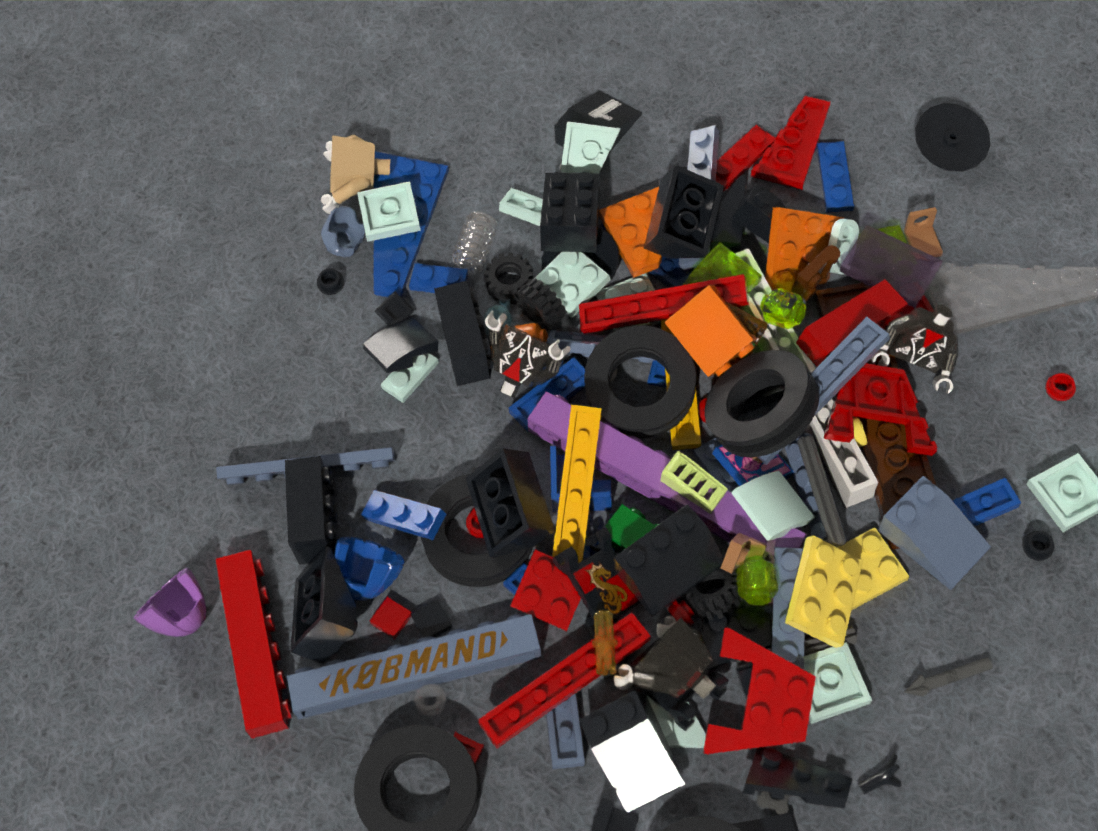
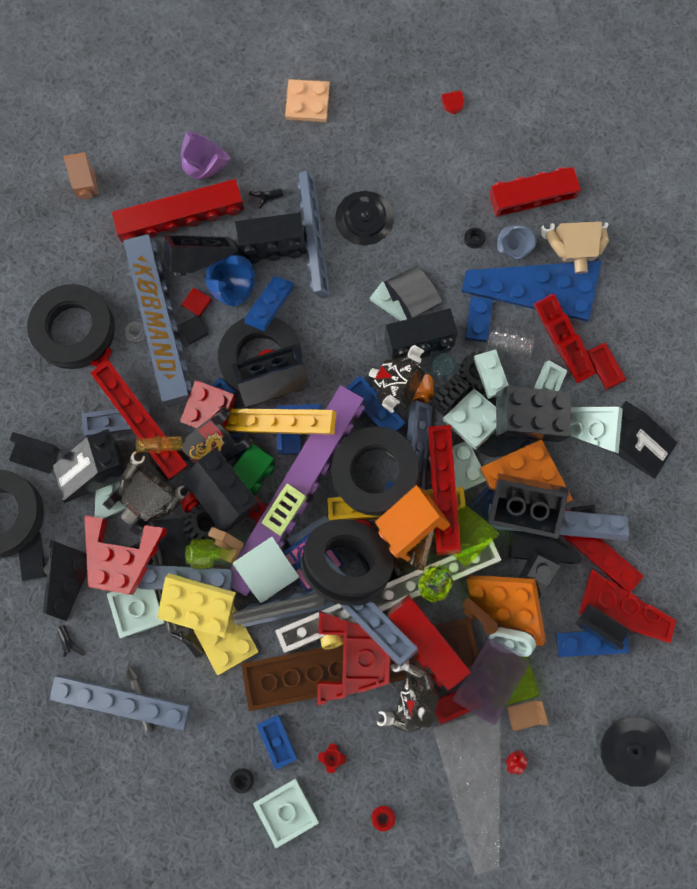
camera: 85 degrees right, 15 degrees up
(104, 478) = (307, 100): none -> light nougat plate
(136, 303) = (453, 101): none -> red tile
(181, 778) = (81, 175): none -> nougat slope
(240, 528) = (266, 195): none -> black bar
(277, 215) = (534, 191): none -> red brick
(286, 409) = (364, 218): none -> black piece
(388, 211) = (535, 273): light aqua plate -> none
(394, 309) = (448, 286): black tile -> none
(469, 190) = (564, 338): none -> red slope
(506, 153) = (606, 366): none -> red tile
(515, 258) = (491, 372): none -> light aqua plate
(819, 159) = (602, 627): none -> black panel
(867, 614) = (188, 641): none -> black bar
(934, 533) = (243, 695): sand blue slope -> none
(957, 699) = (120, 702): none -> sand blue plate
(978, 249) = (516, 762): none -> red plate
(997, 435) = (325, 758): none -> red plate

